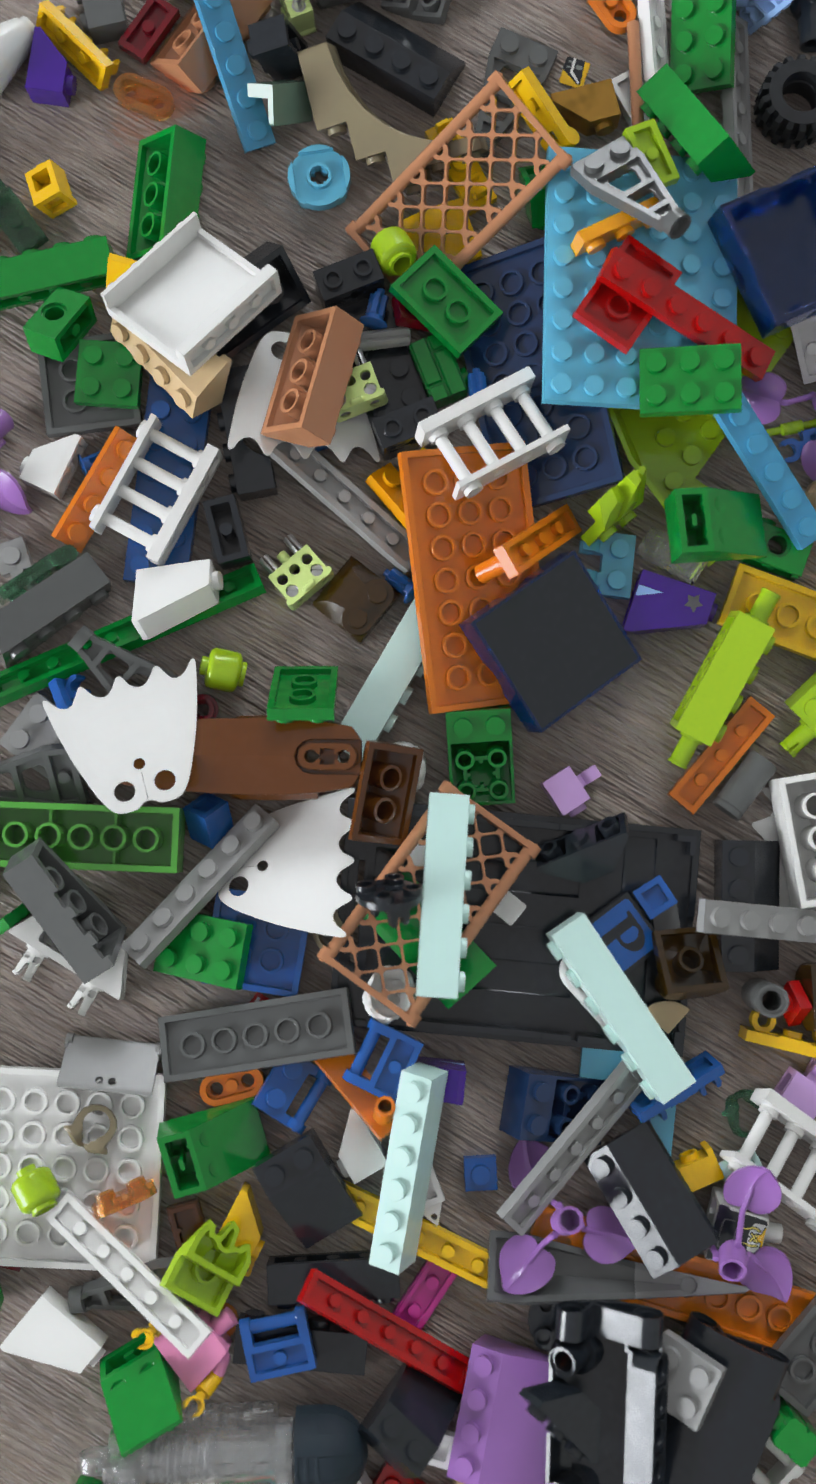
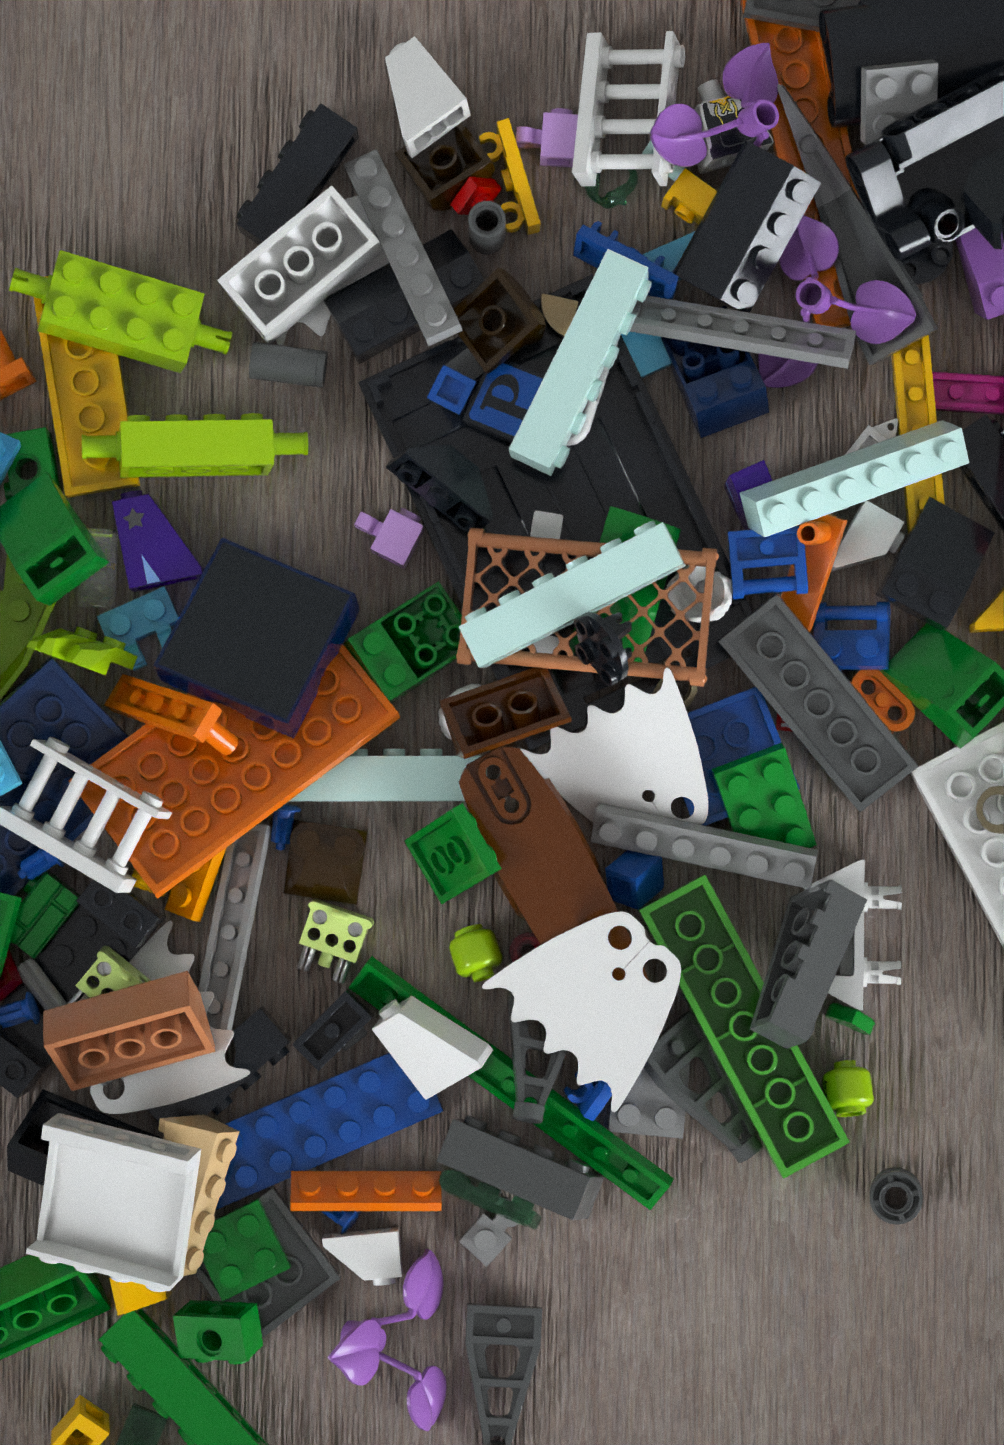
camera: 125 degrees left, 0 degrees up
(124, 1061) = (921, 815): light grey door -> none
(188, 491) = (351, 1094): white fence -> none
(480, 1172) = (822, 406): blue plate -> none
(721, 757) = (285, 406): orange plate -> none

